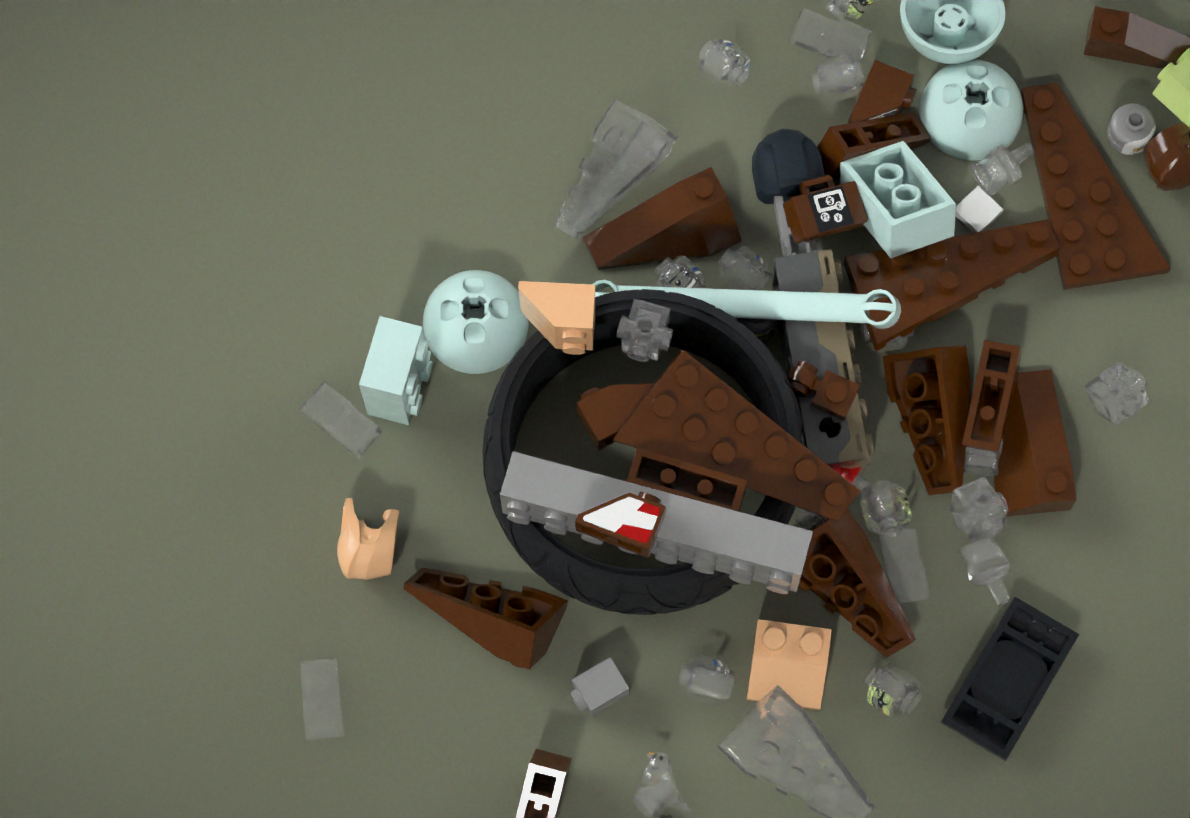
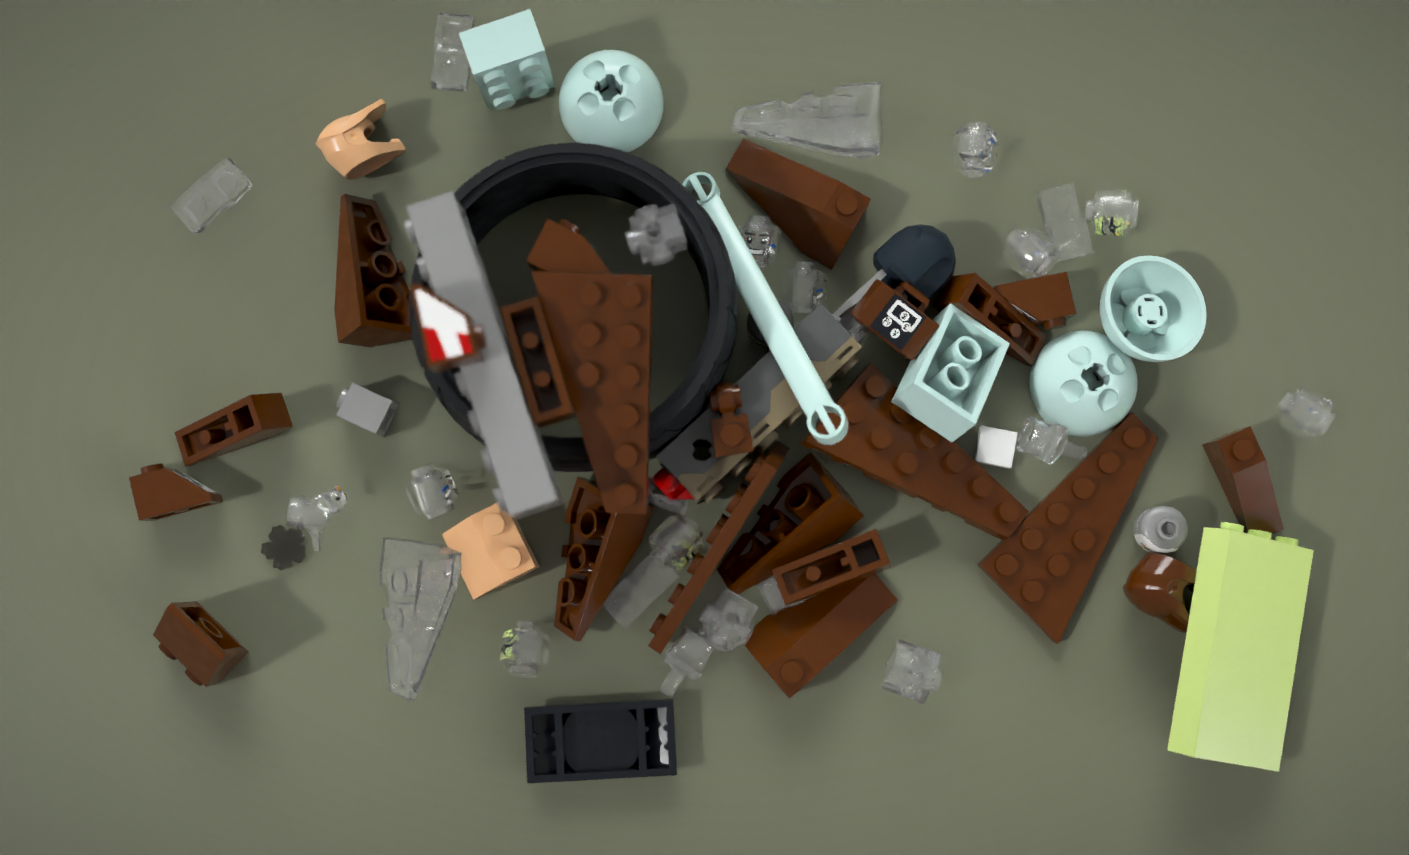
camera: 50 degrees right, 10 degrees up
(561, 313) = (619, 154): light nougat slope -> none
(907, 461) = (720, 539): none -> reddish brown wing

